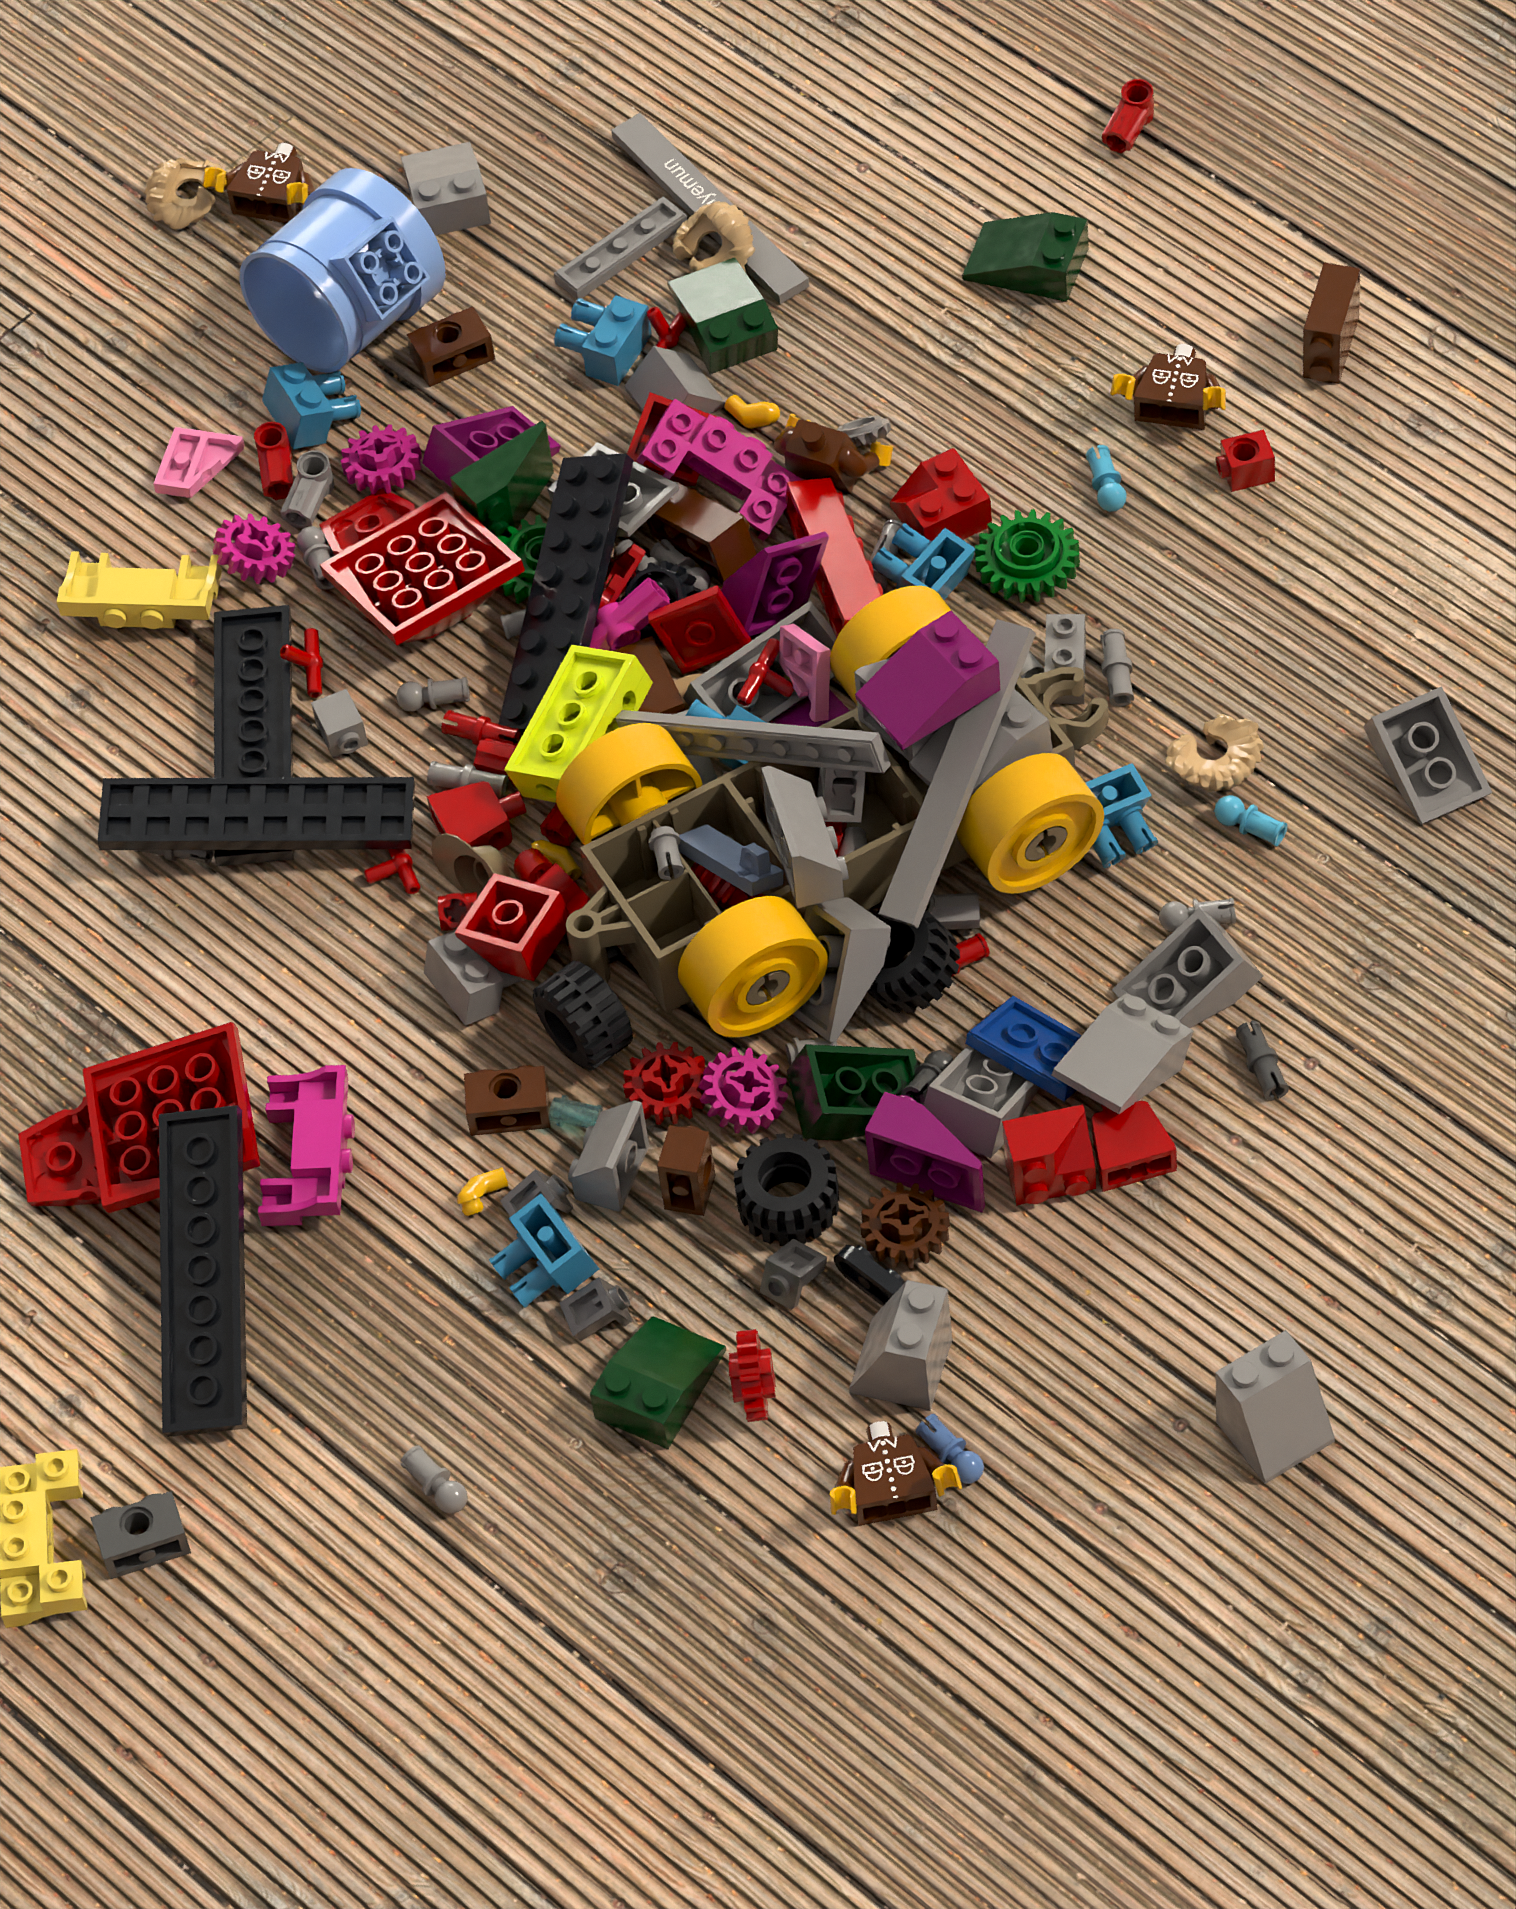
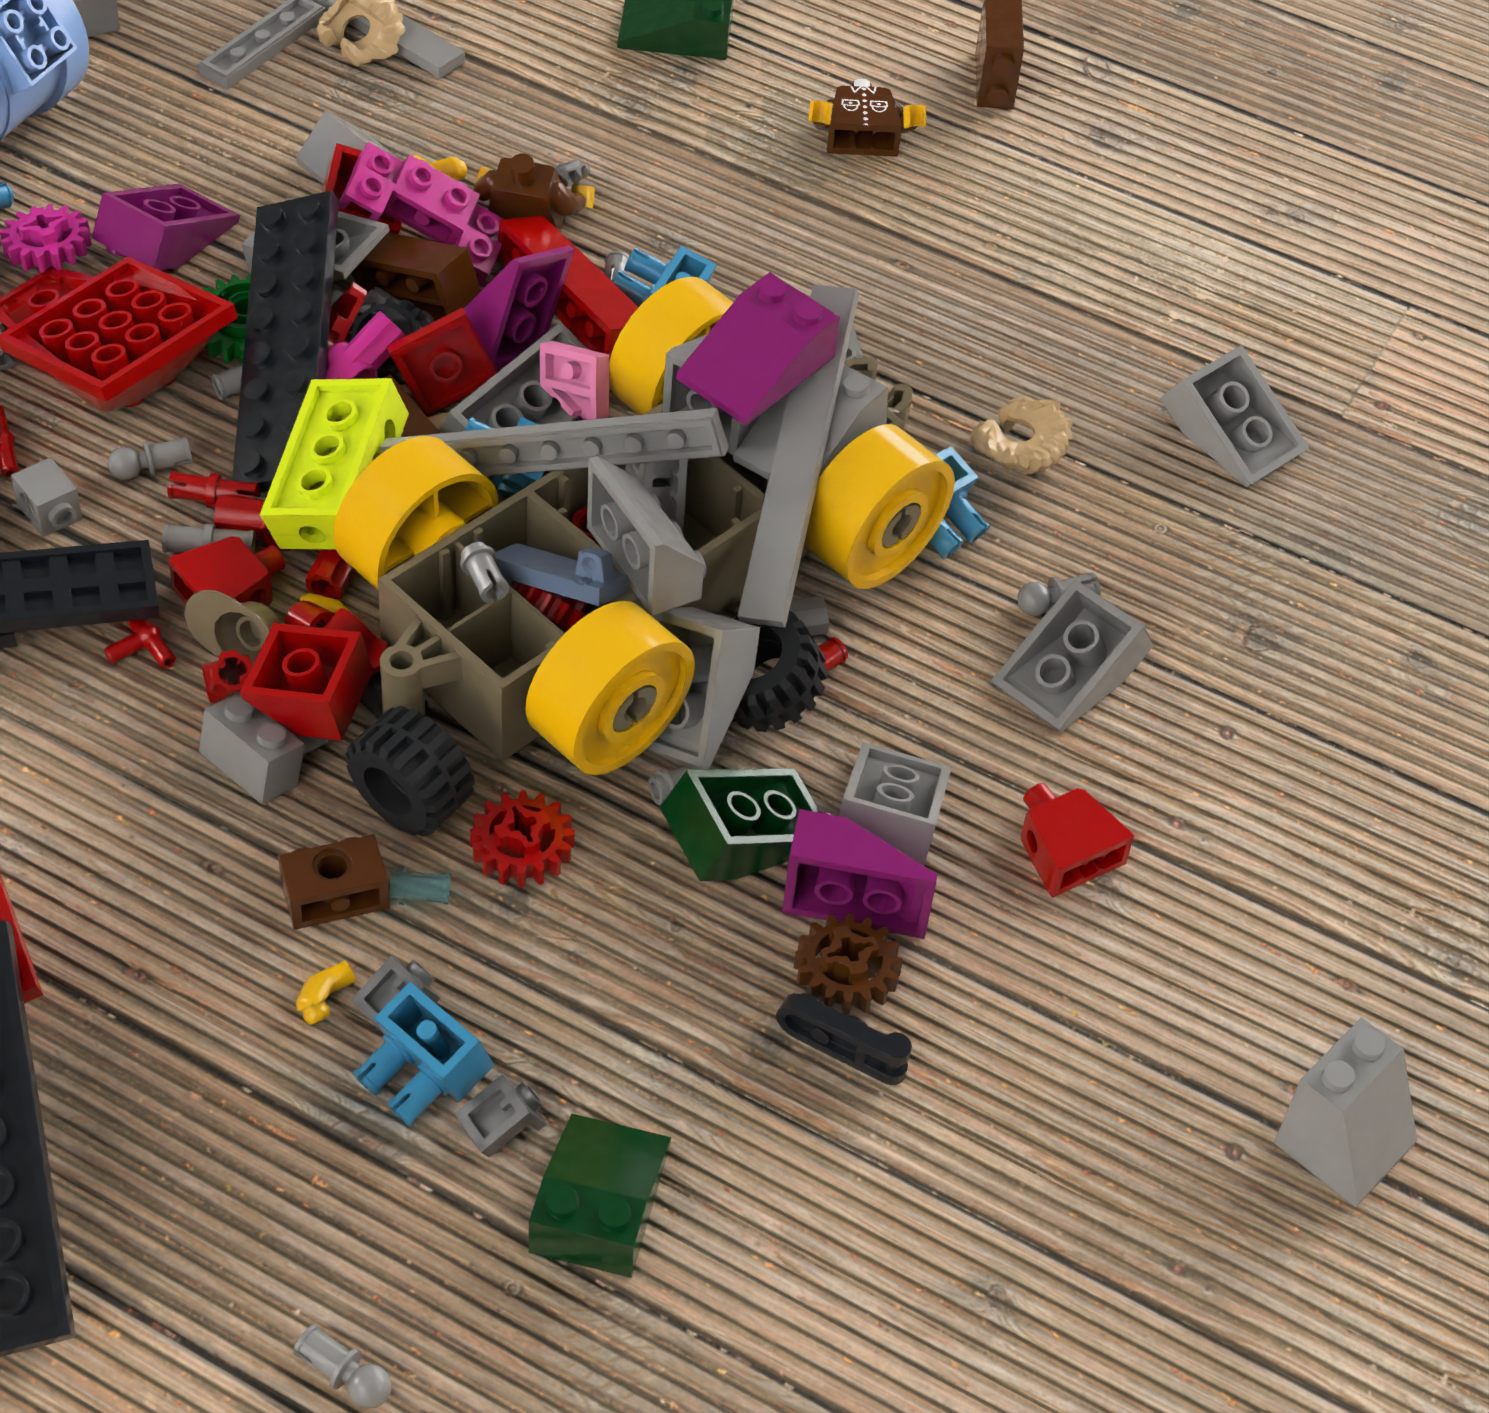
camera: 25 degrees left, 5 degrees down
(319, 1145) = (113, 979): dark pink bracket -> none
(450, 346) = (101, 132): reddish brown brick -> none
(506, 481) = (193, 238): dark green slope -> none
(610, 1157) = (476, 929): light grey slope -> none
(614, 342) = (277, 112): dark azure brick -> none
(667, 333) = (333, 105): red piece -> none
(686, 1170) = (577, 932): reddish brown brick -> none
(725, 315) = (391, 86): dark green slope -> none
(745, 1089) = (616, 835): dark pink gear -> none
(752, 1375) = (726, 1167): red gear -> none
(760, 673) = (525, 396): red piece -> none
(783, 1162) = (701, 908): black tyre -> none
(790, 1271) = (728, 1038): flat silver bracket -> none
(891, 1478) = (930, 1270): reddish brown torso -> none
(906, 1347) = (897, 1104): light grey slope -> none
(926, 1073) = (827, 789): dark grey pin -> none
(943, 496) = (662, 221): red slope -> none
(950, 1449) = (1007, 1240): medium blue pin -> none
(1025, 1043) = (936, 749): blue tile -> none
(1027, 556) = (752, 258): green gear -> none
(1049, 1155) = (993, 861): red slope -> none
(1106, 479) = (820, 201): medium azure pin -> none
(1117, 667) = (890, 364): light grey pin -> none
(1125, 1053) = (1042, 739): light grey slope -> none
(1231, 811) = (1056, 490): medium azure pin -> none
(1246, 460) = (955, 174): red brick -> none
(1262, 1060) = (1180, 734): dark grey pin -> none

